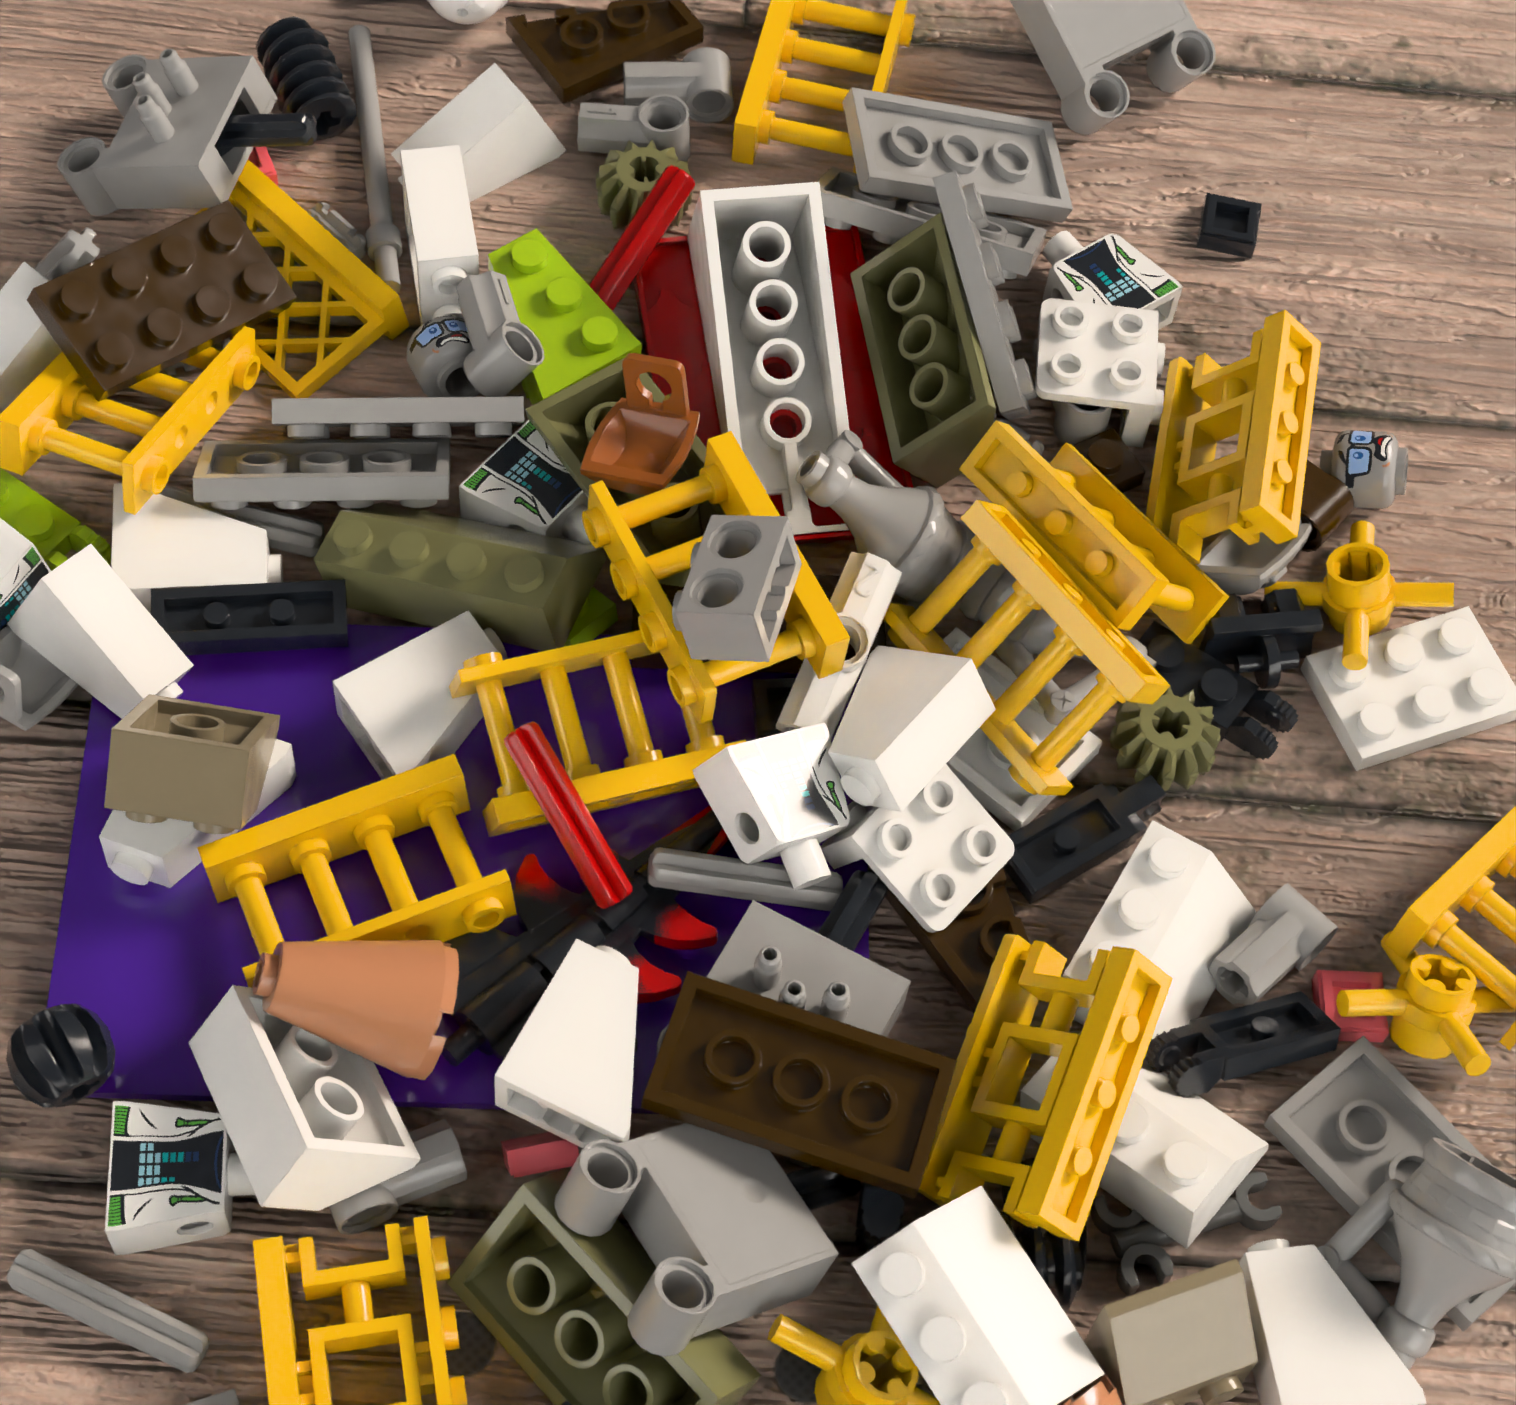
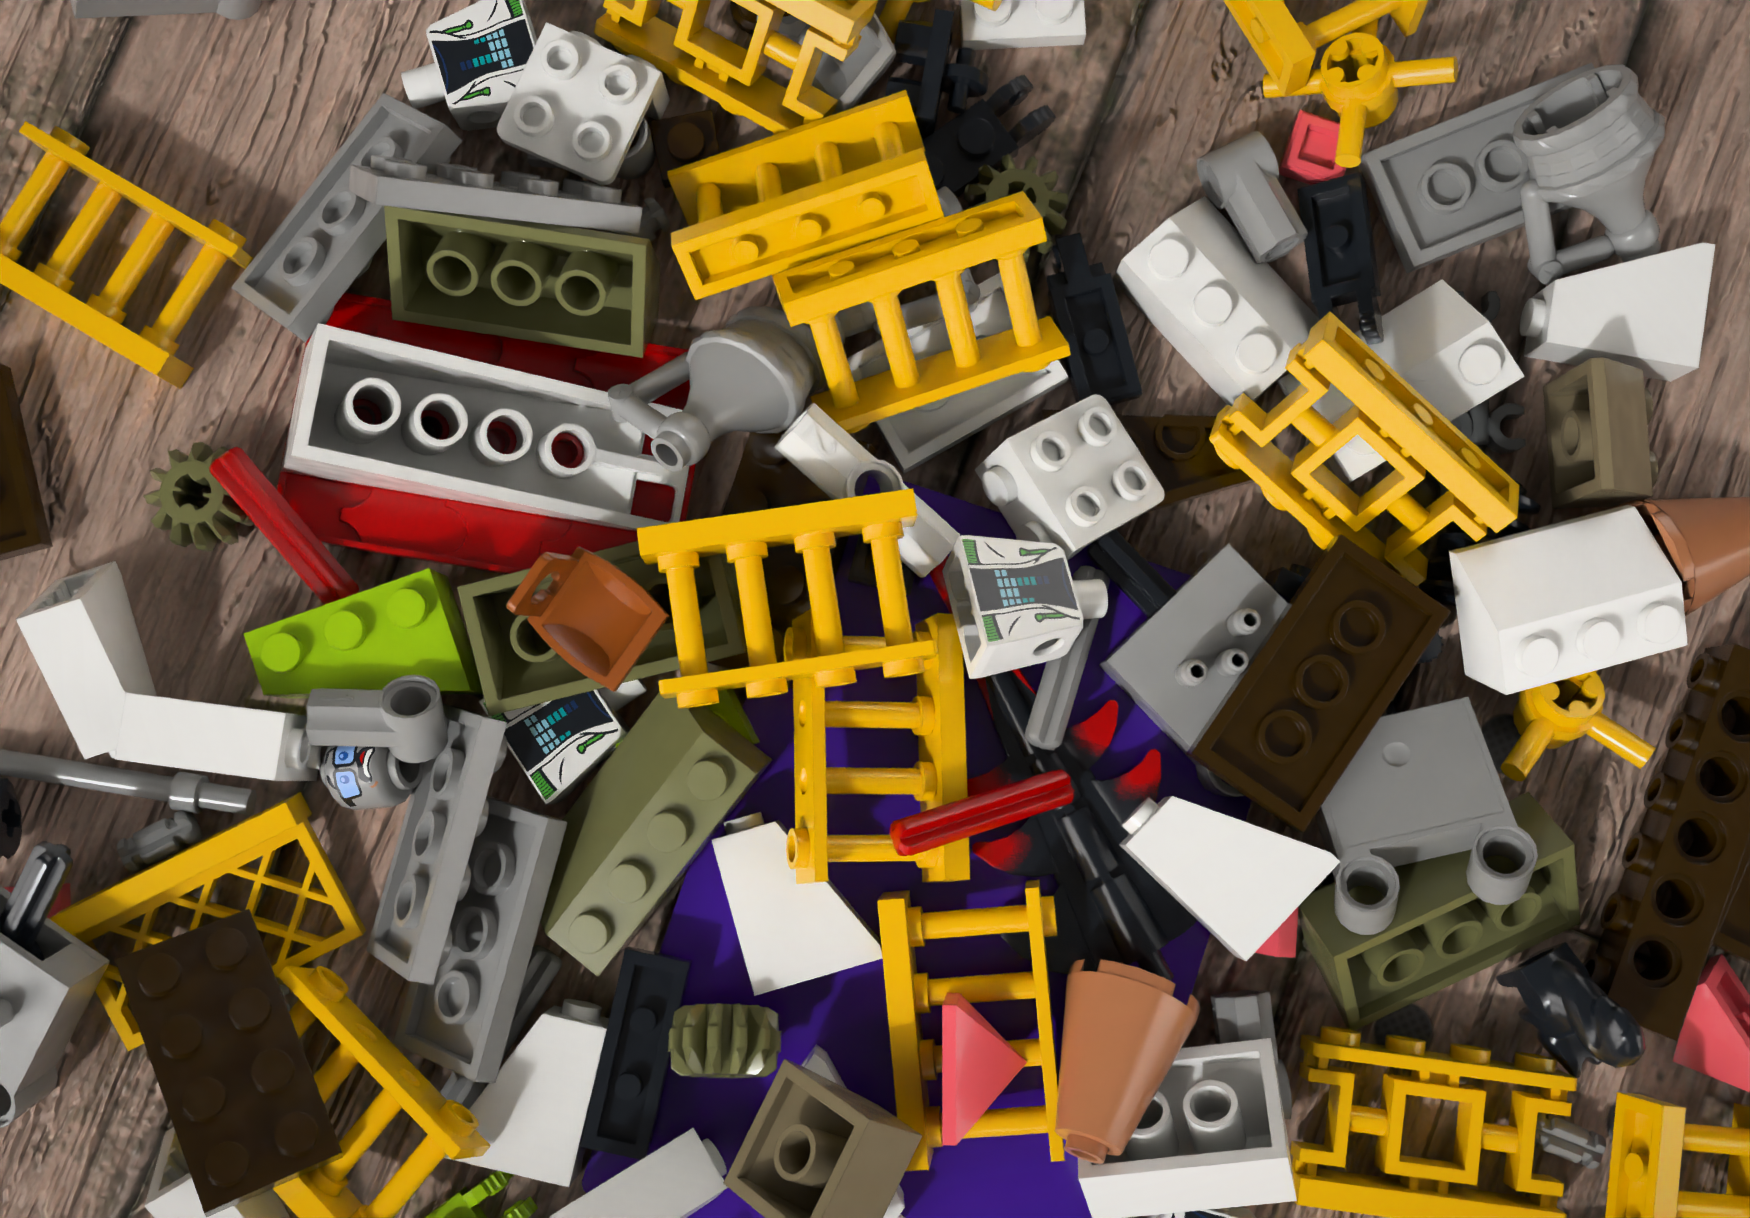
camera: 65 degrees left, 25 degrees up
(69, 254) = (143, 1152): light grey axle -> none
(282, 669) = (724, 1041): none -> olive gear
(315, 867) = (974, 1067): none -> coral slope
(612, 126) = (115, 488): light grey piece -> none
(699, 80) = (74, 400): light grey piece -> none
(738, 588) = (852, 569): light grey brick -> none
(906, 723) = (977, 459): white slope -> none
(910, 140) = (271, 155): light grey plate -> none

